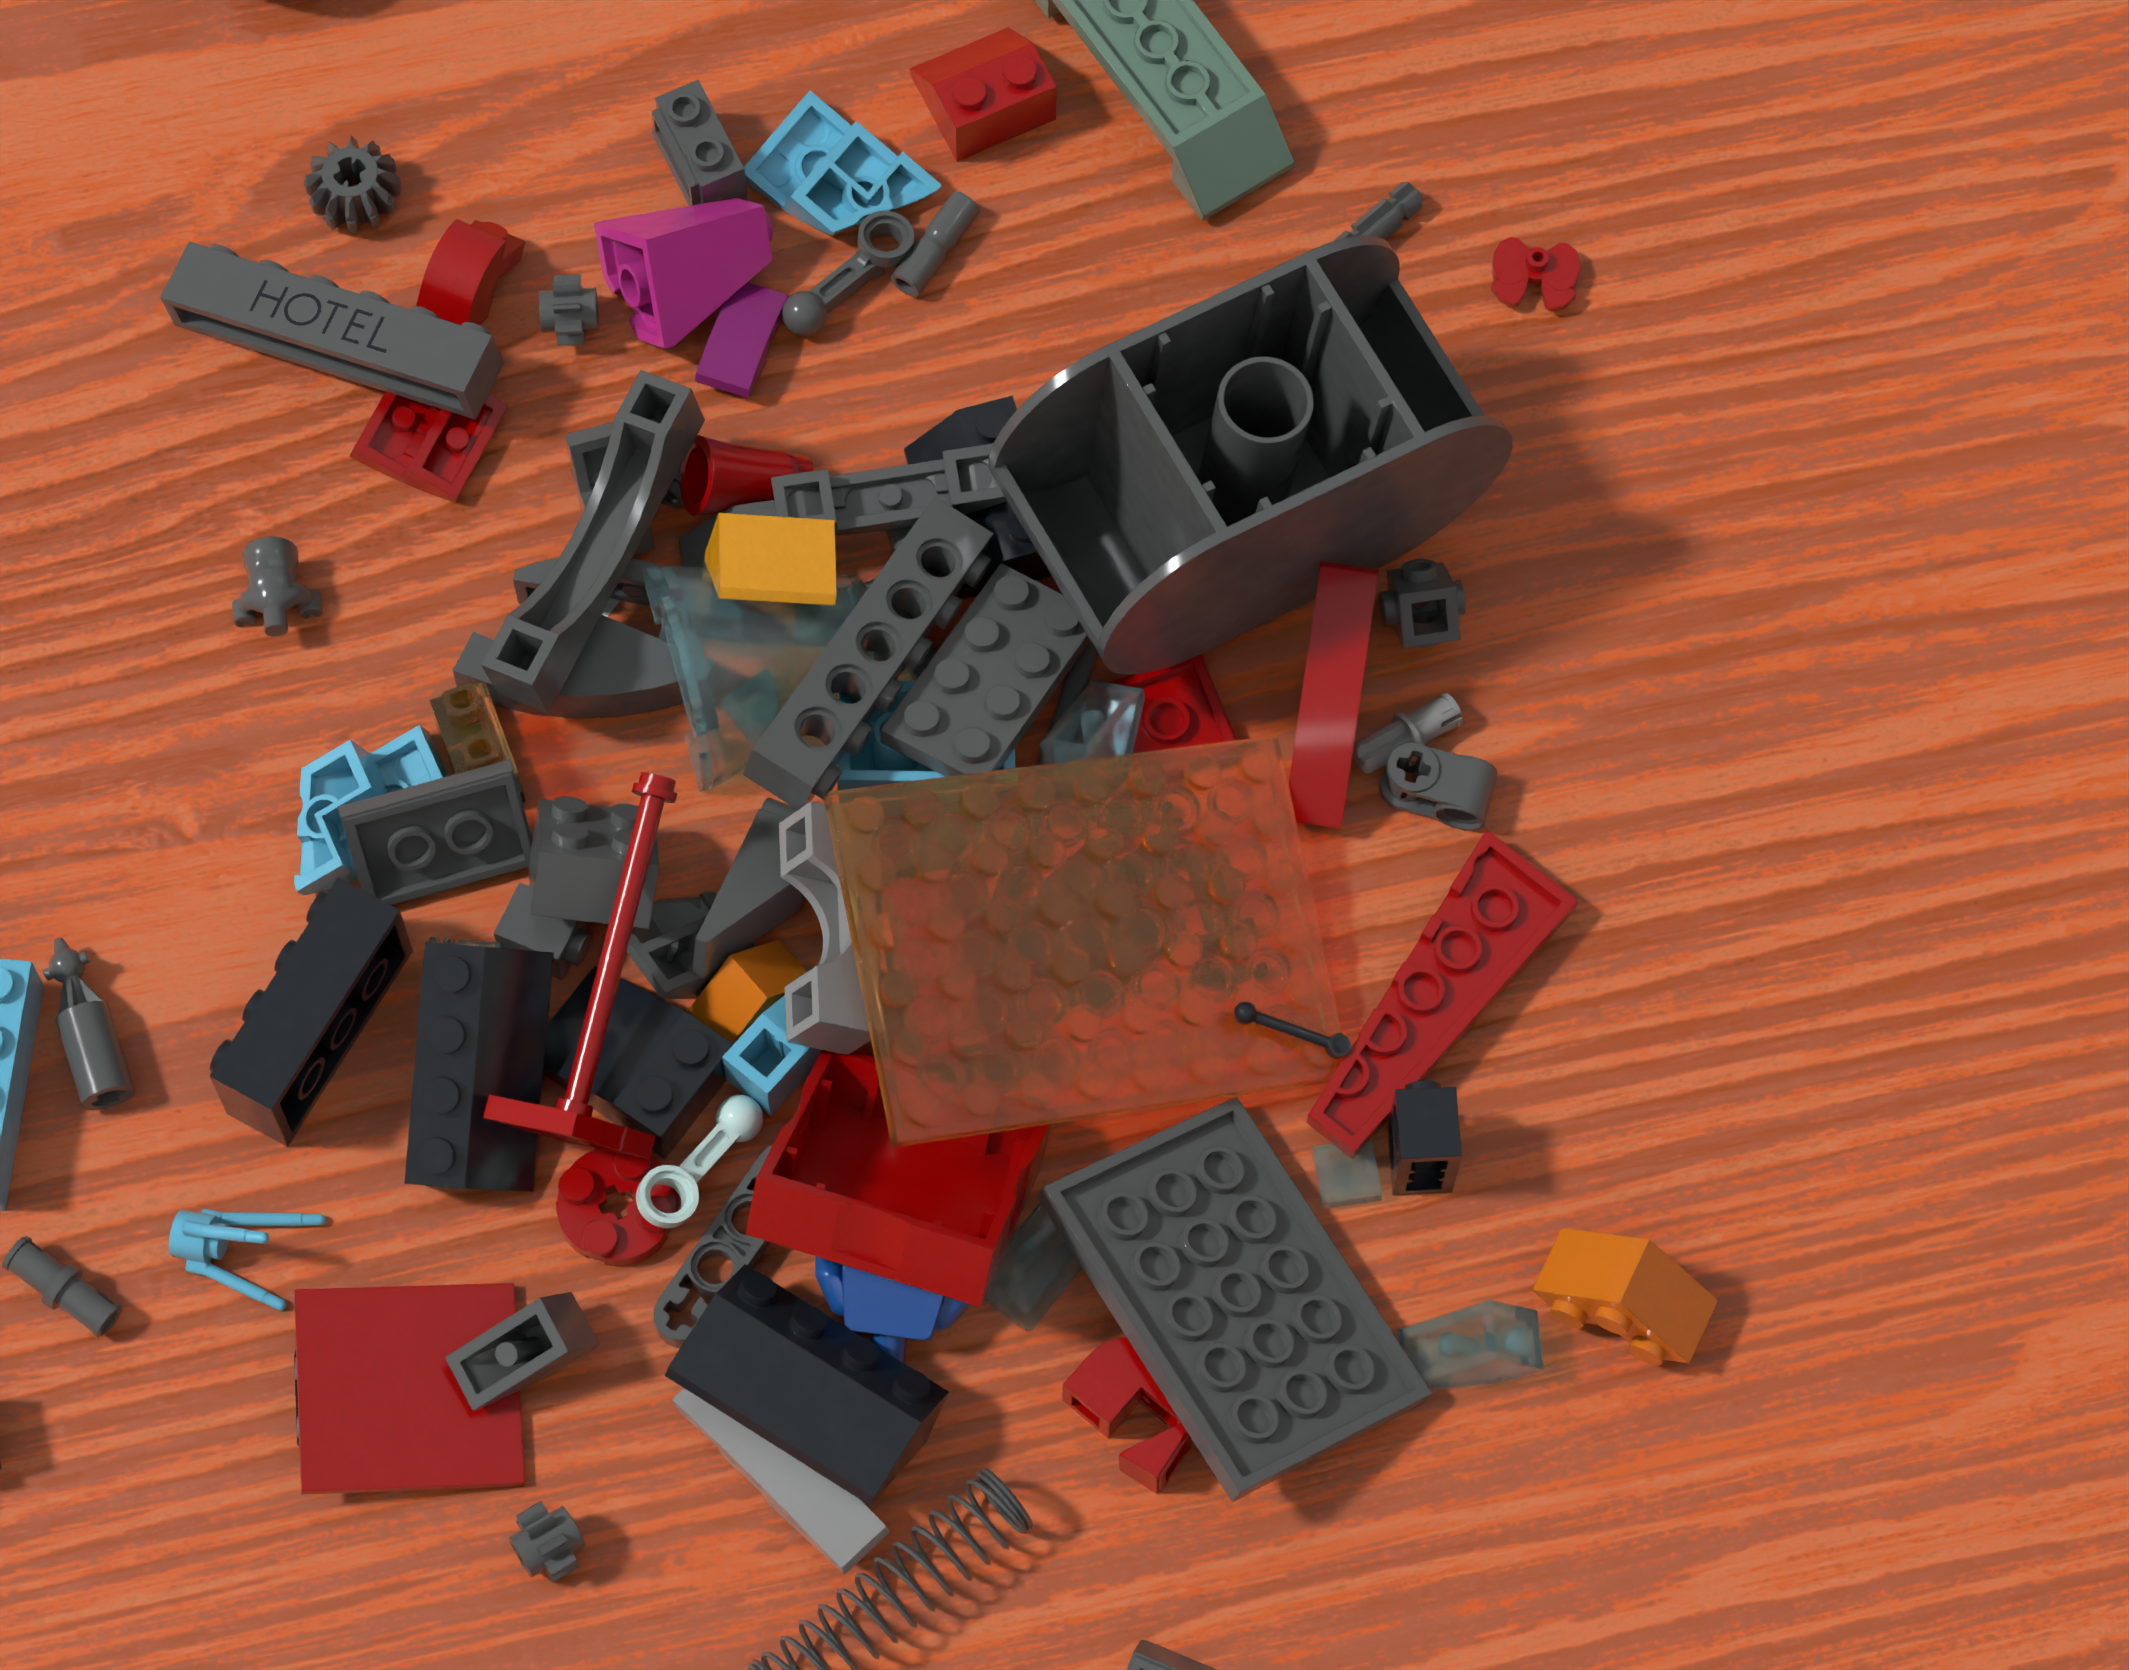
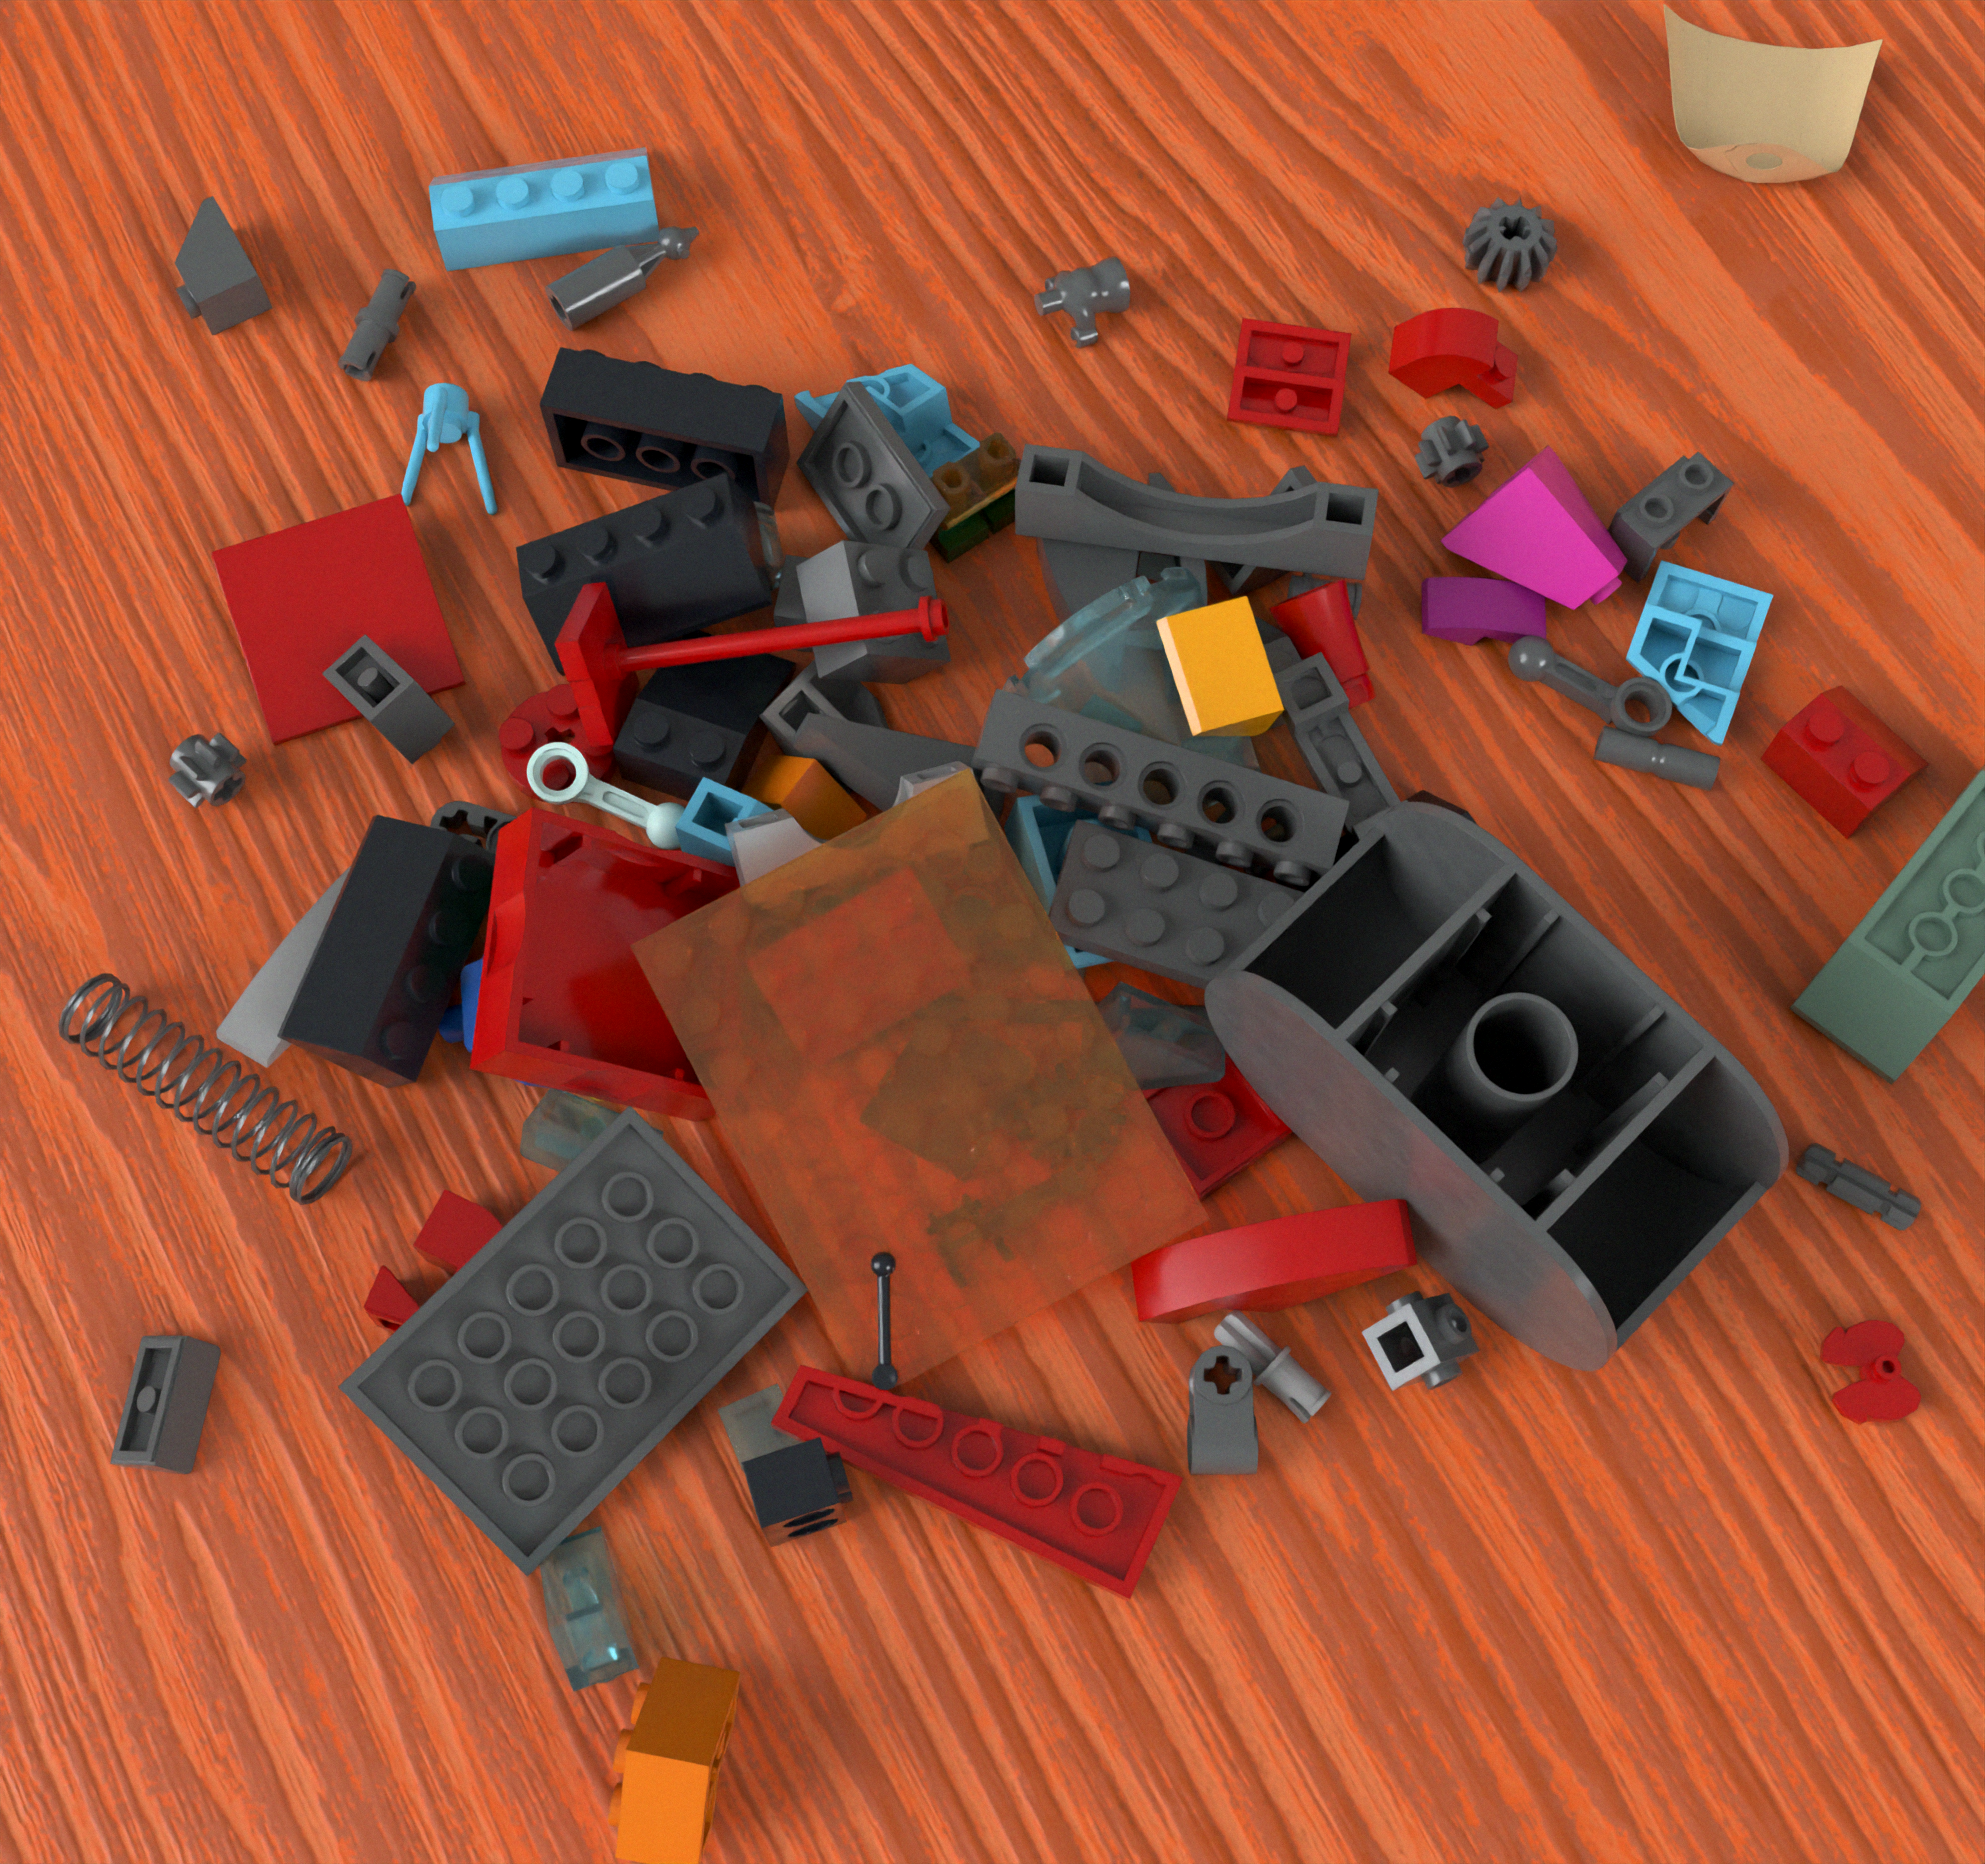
camera: 75 degrees right, 0 degrees up
(333, 329) = (1351, 265): dark grey brick -> none

